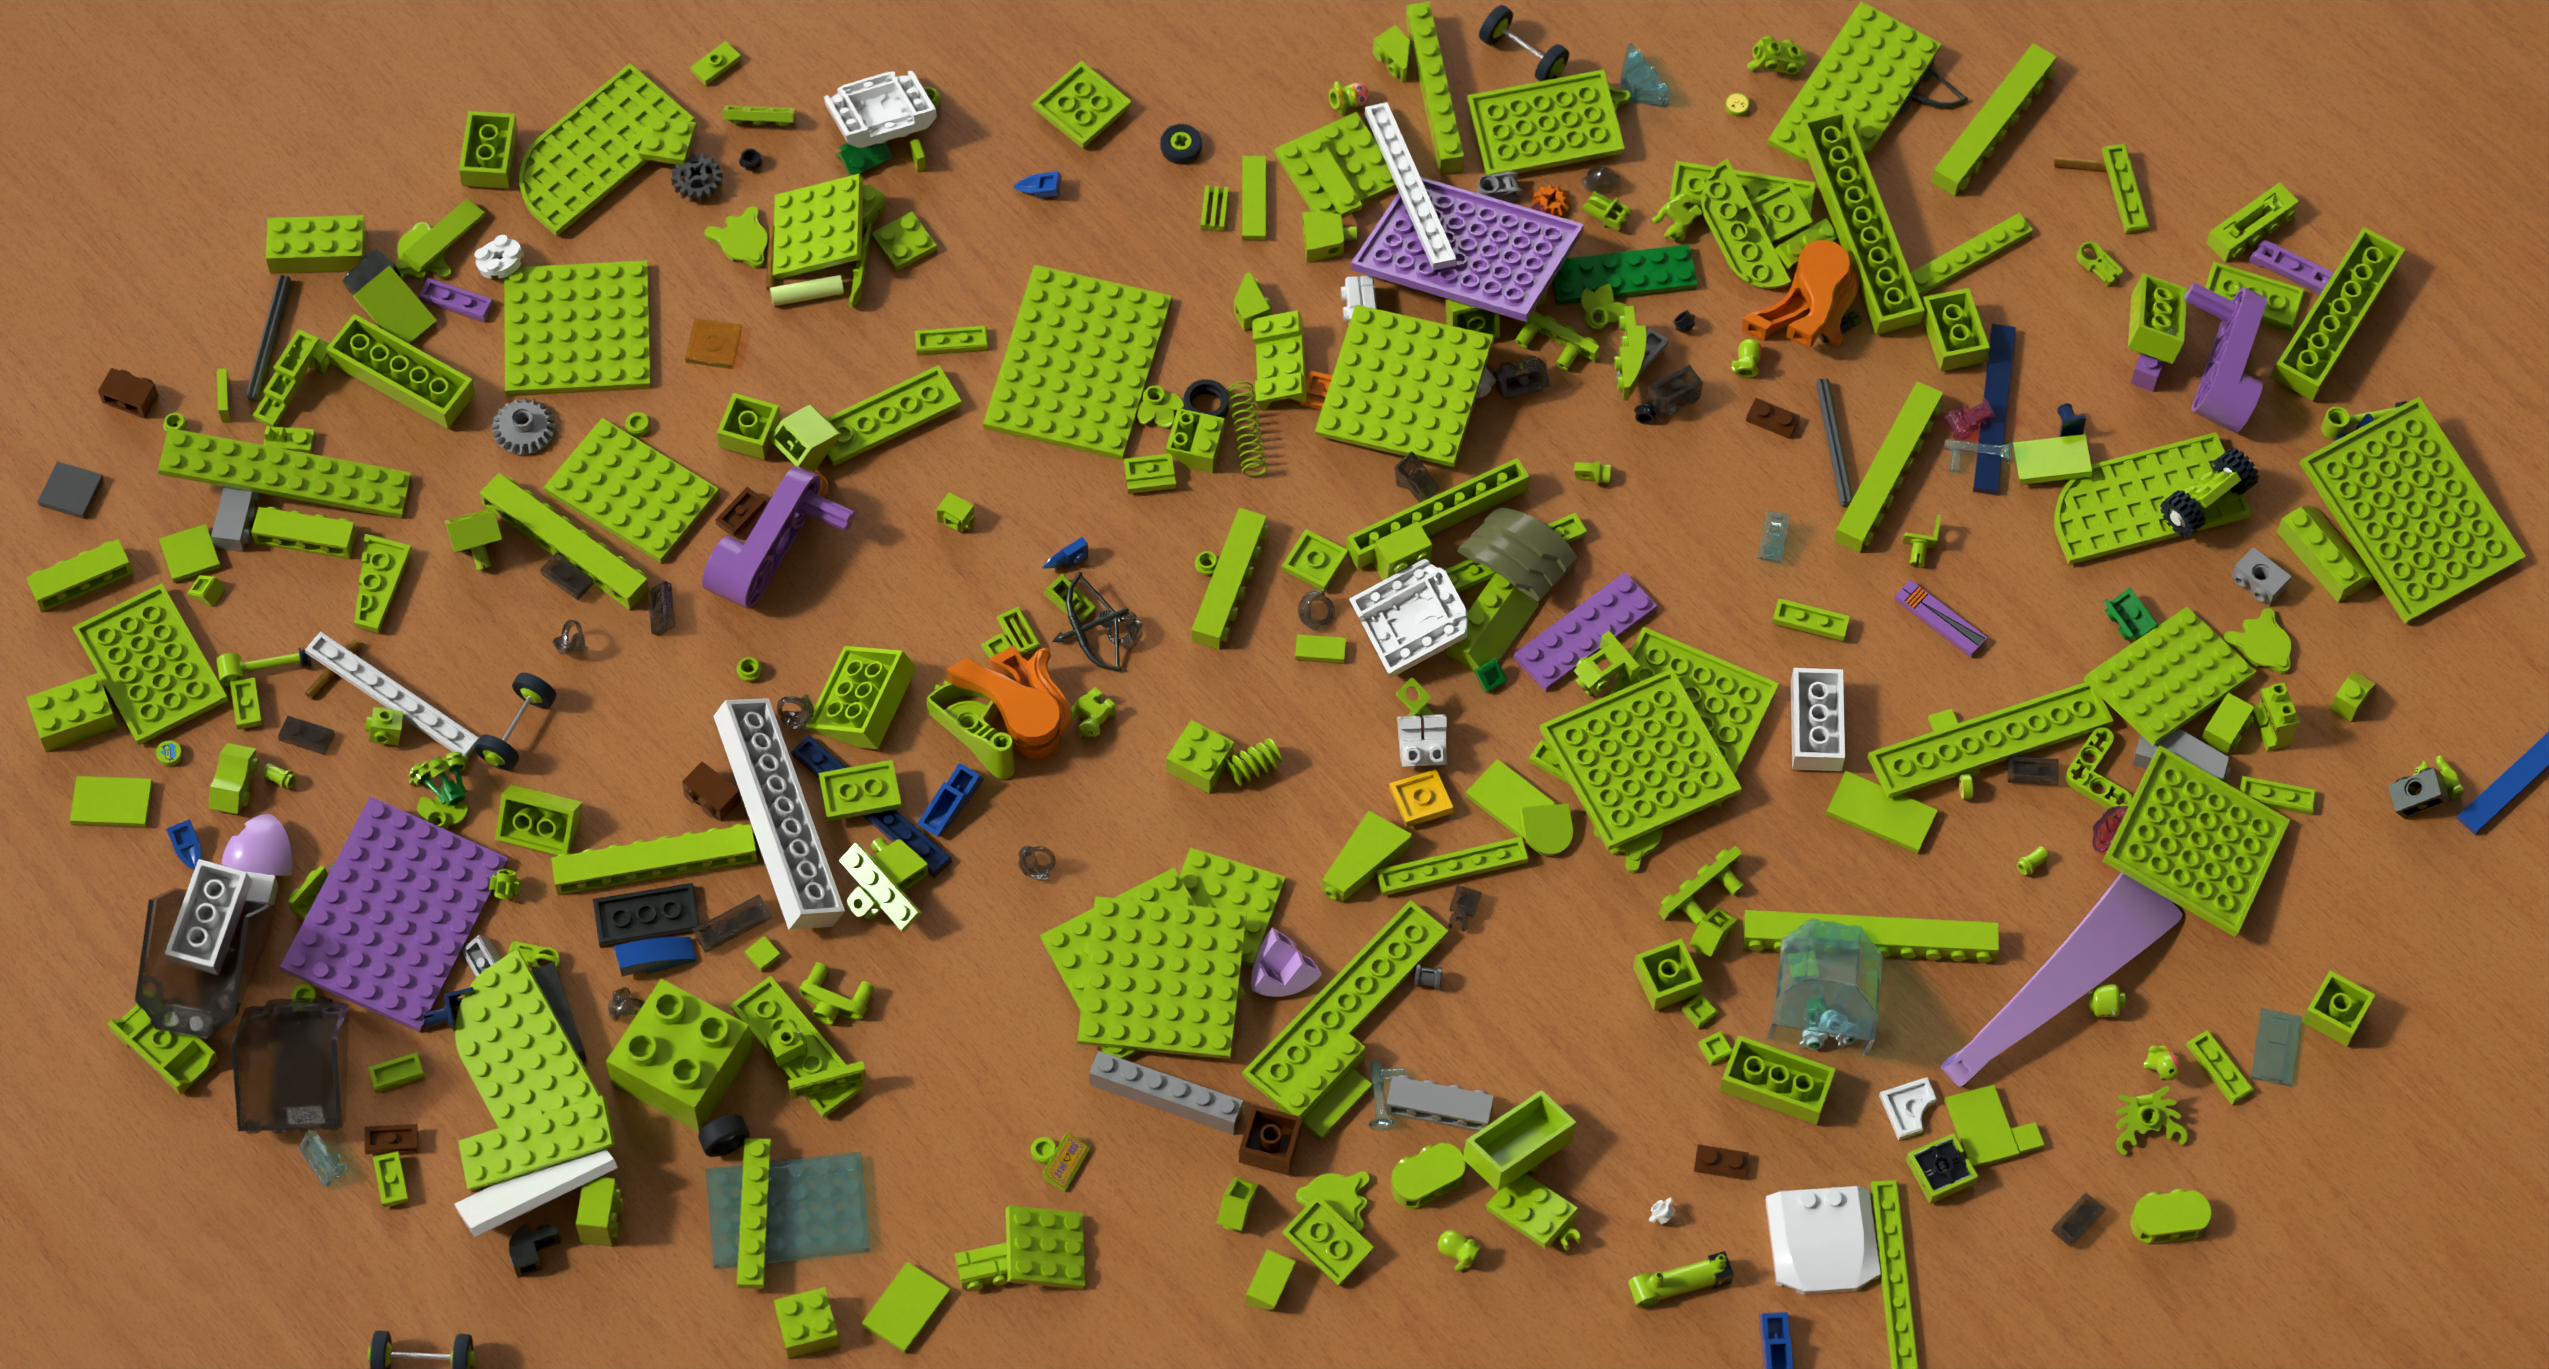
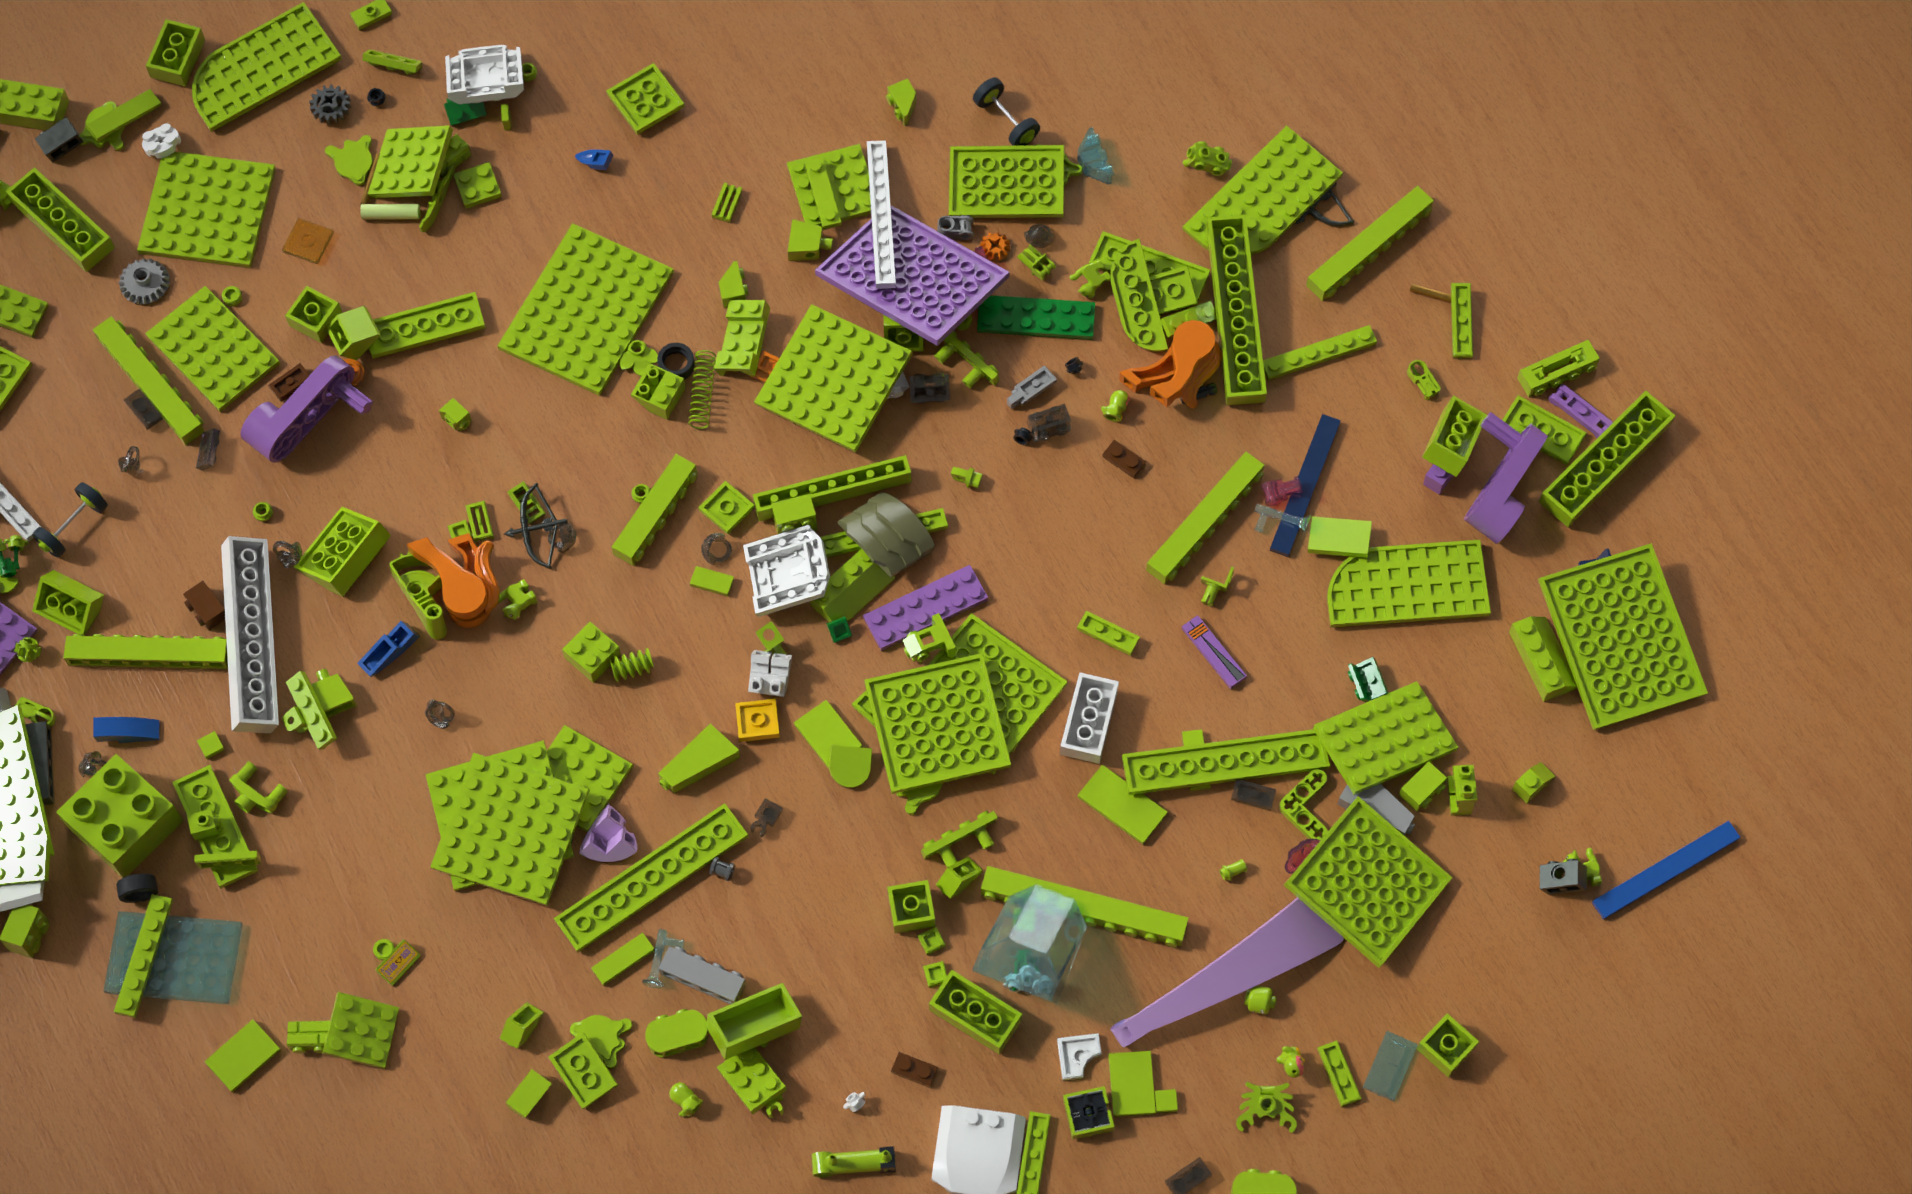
camera: 15 degrees right, 5 degrees up
(394, 306) = (69, 167): lime tile -> none
(456, 300) = (120, 169): medium lavender tile -> none
(473, 533) = (78, 361): lime brick -> none
(646, 915) = (130, 695): pearl dark grey tile -> none
(667, 140) = (314, 70): lime plate -> none
(732, 923) = (193, 716): clear smoke plate -> none
(806, 1322) = (160, 1053): lime brick -> none
(860, 790) = (318, 628): lime plate -> none
(889, 822) = (327, 641): dark blue tile -> none
(951, 340) = (492, 273): lime tile -> none
(1071, 554) = (536, 466): blue plate -> none
(1149, 473) = (616, 411): lime plate -> none
(1166, 1092) = (490, 923): light grey brick -> none
(1179, 154) = (721, 139): black bush -> none
(1253, 197) = (760, 199): lime tile -> none
(1270, 1139) = (560, 978): reddish brown brick -> none
(1323, 1076) = (614, 936): lime brick -> none
(1352, 95) = (860, 130): lime animal -> none
(1359, 292) = (819, 294): white brick -> none
(1414, 475) = (823, 455): clear smoke slope -> none
(1434, 88) = (926, 136): lime brick -> none
(1451, 866) = (766, 781): lime plate -> none
(1602, 304) = (1012, 339): lime plate -> none
(1631, 354) = (1021, 387): lime slope -> none
(1737, 104) = (1166, 192): light yellow tile -> none
(1773, 536) = (1096, 558): clear light blue plate -> none
(1834, 441) = (1168, 488): dark grey axle -> none
(1955, 329) = (1288, 413): lime brick -> none
(1966, 786) = (1195, 797): lime tile -> none
(2071, 424) = (1362, 510): bracket -> none
(2184, 507) = (1432, 600): black plate -> none
(2255, 565) = (1482, 657): light grey brick -> none
(2262, 642) = (1472, 723): lime tile -> none
(2279, 795) = (1449, 854): lime tile -> none
(2343, 419) = (1586, 545): lime piece -> none

